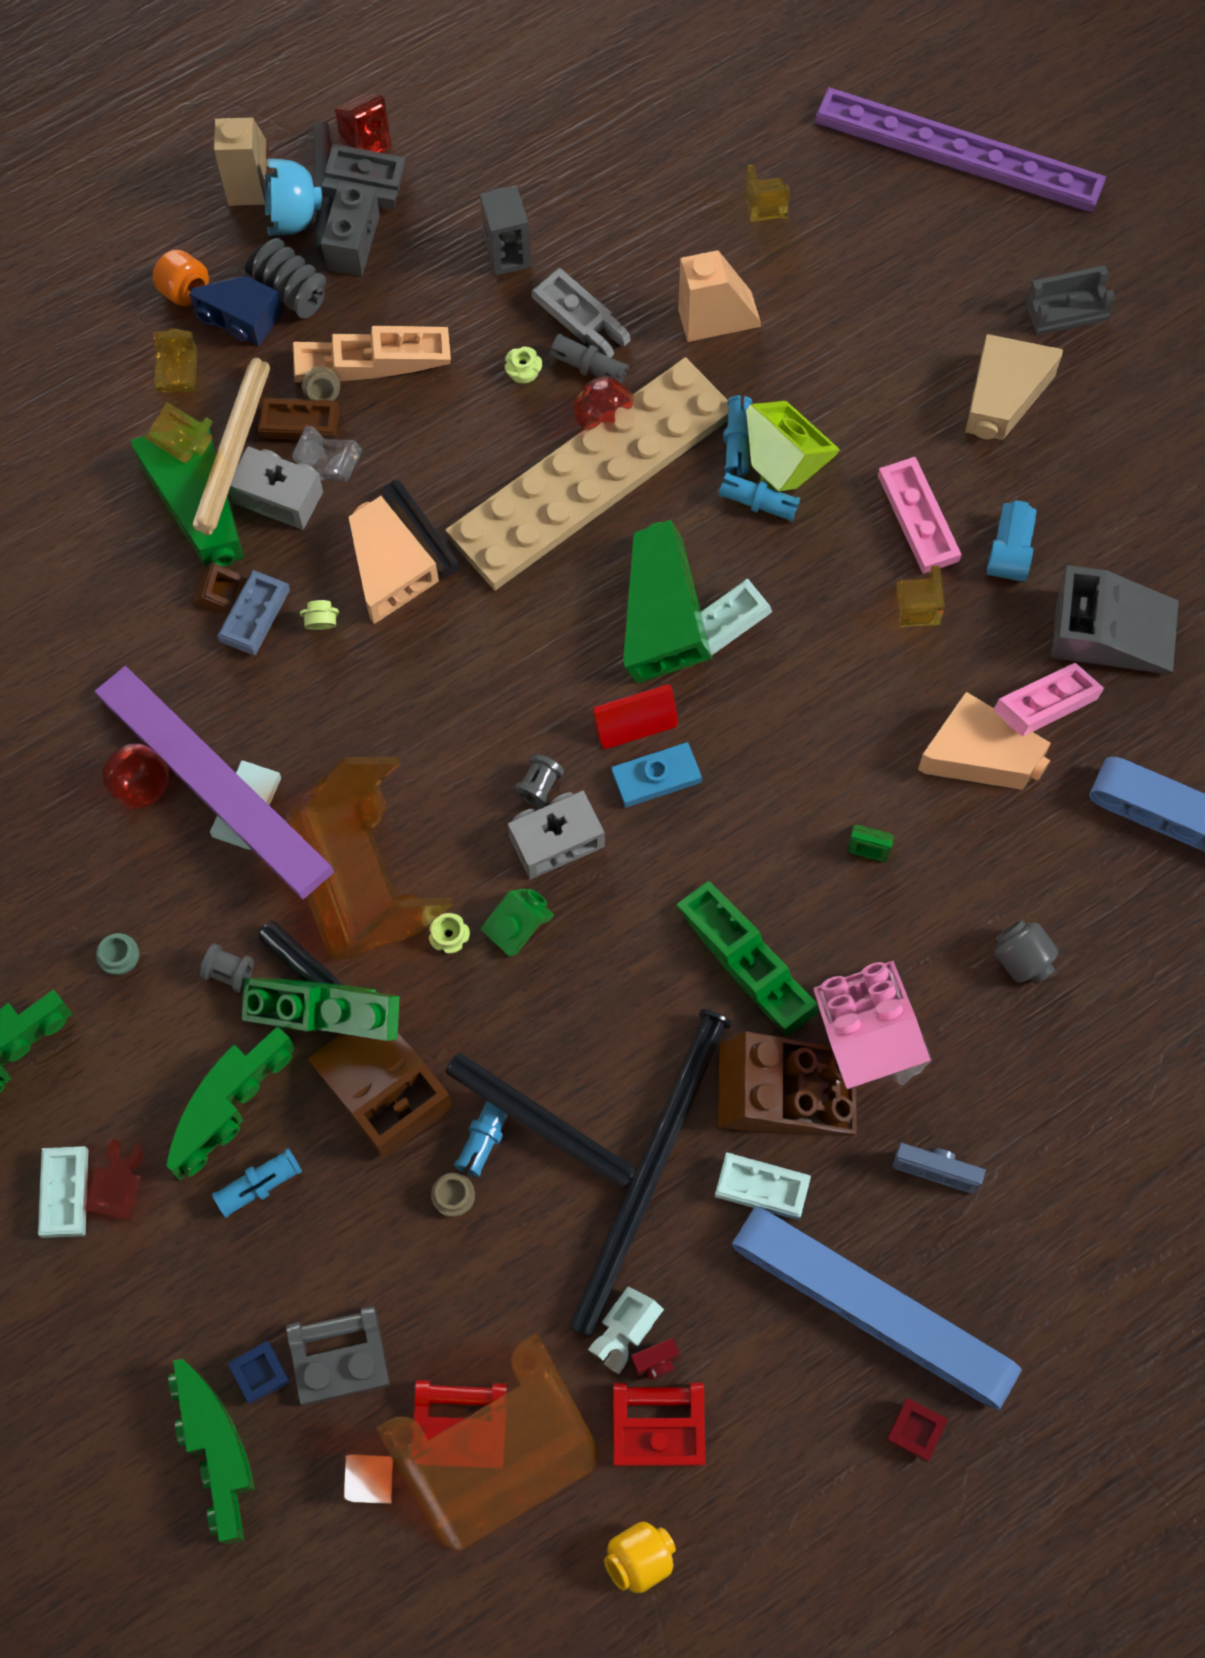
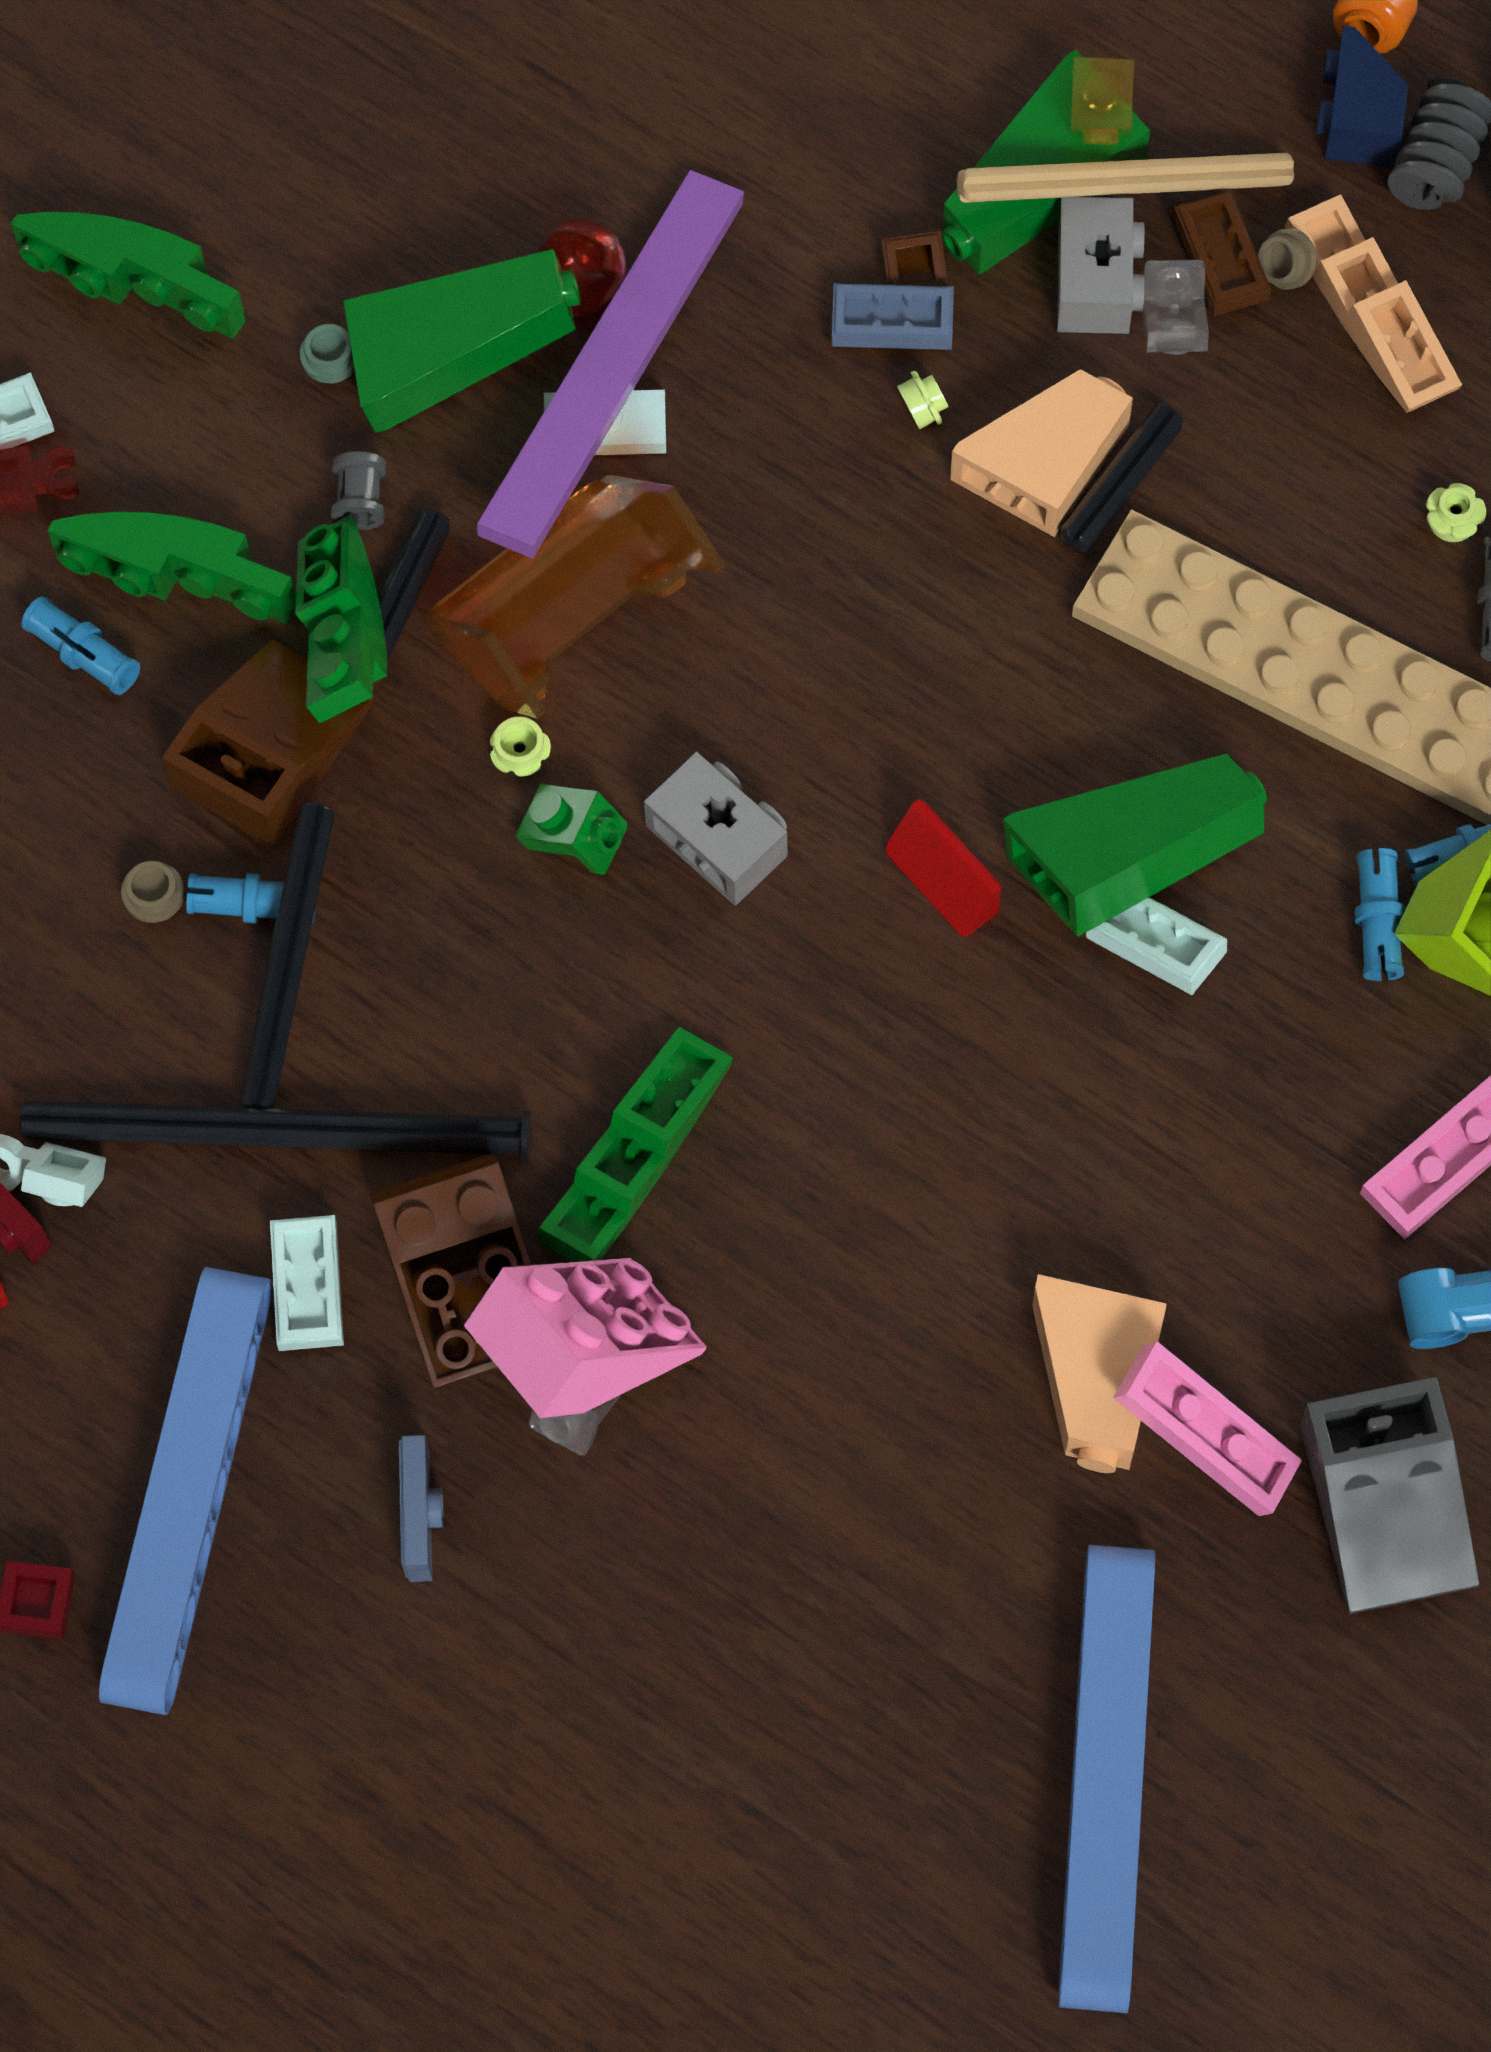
camera: 70 degrees right, 0 degrees up
(144, 870) = (453, 331): none -> green slope
(175, 361) = (1236, 59): clear yellow bracket -> none
(538, 780) = (790, 776): dark grey bush -> none
(599, 401) = (1432, 630): clear red hair -> none
(656, 774) = (869, 932): dark azure plate -> none
(870, 843) = (886, 1258): green slope -> none
(921, 600) = (1309, 1201): clear yellow panel -> none
(1026, 952) = (792, 1529): dark grey head -> none

